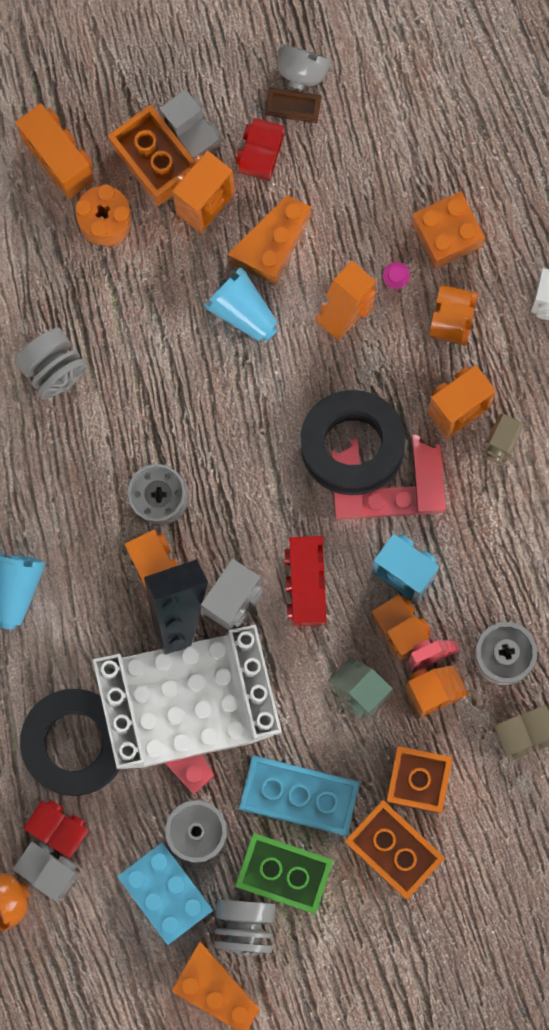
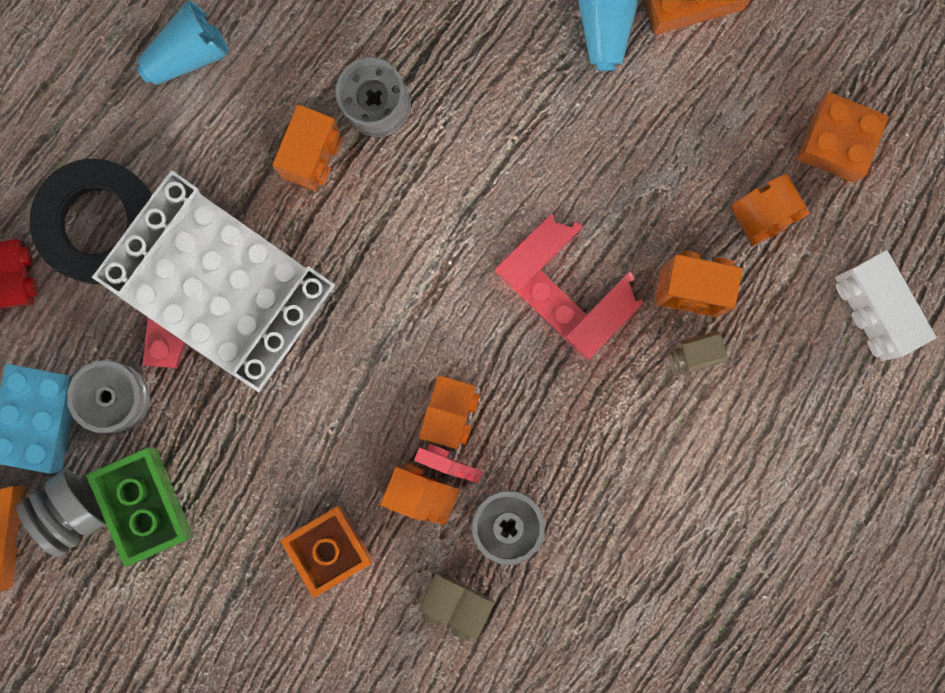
camera: 40 degrees right, 5 degrees up
(176, 604) = (285, 196): black wedge -> none
(232, 596) = (338, 241): light grey brick -> none
(299, 795) = (224, 457): medium azure tile -> none
(306, 581) = (414, 295): red wedge -> none
(349, 299) = (699, 105): orange wedge -> none
(352, 406) = (594, 186): black tyre -> none
(361, 687) = (360, 426): sand green wedge -> none
(394, 850) = (246, 585): orange brick -> none
(396, 275) = (759, 129): dark pink plate -> none
(405, 567) = (502, 369): medium azure brick -> none

